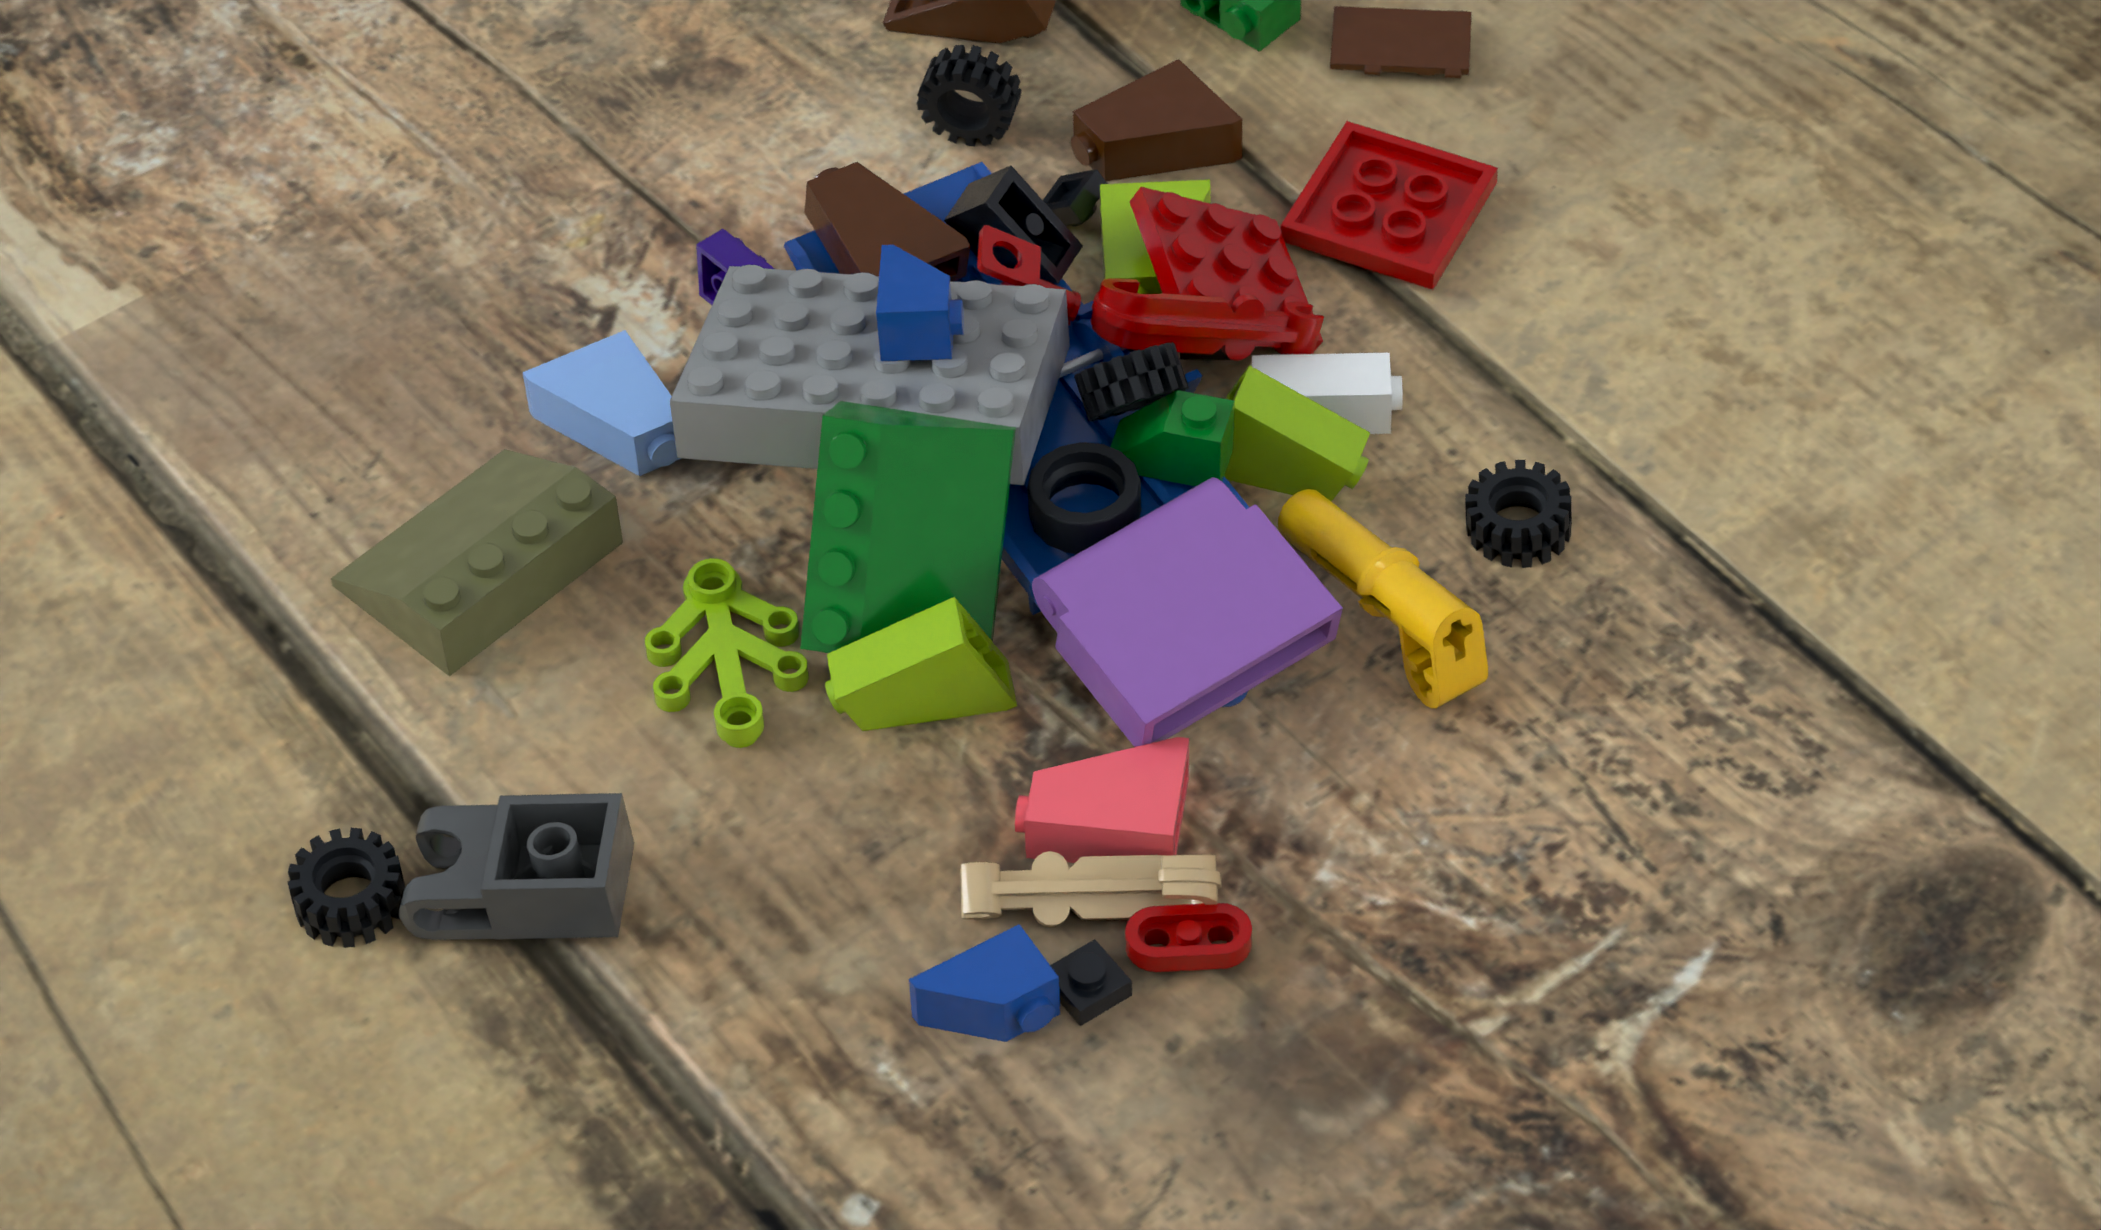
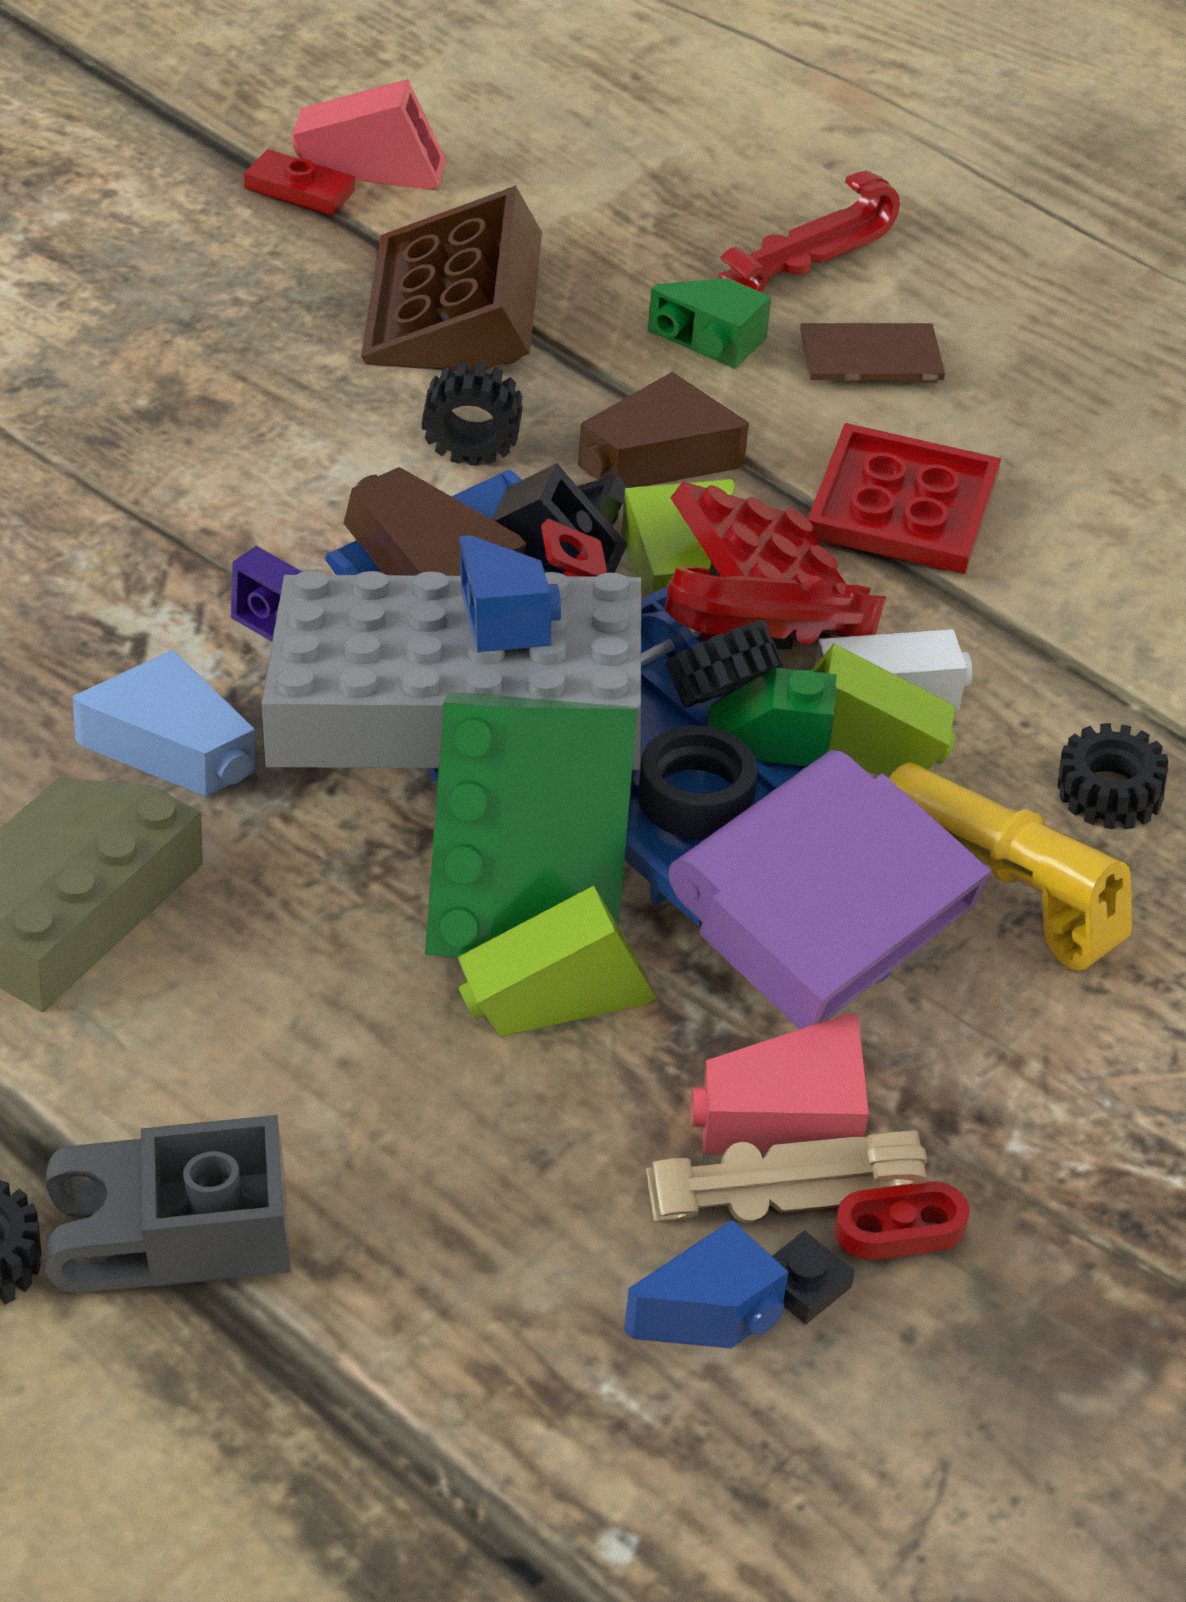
camera: 15 degrees left, 5 degrees down
(714, 591) = (317, 904): lime plant -> none

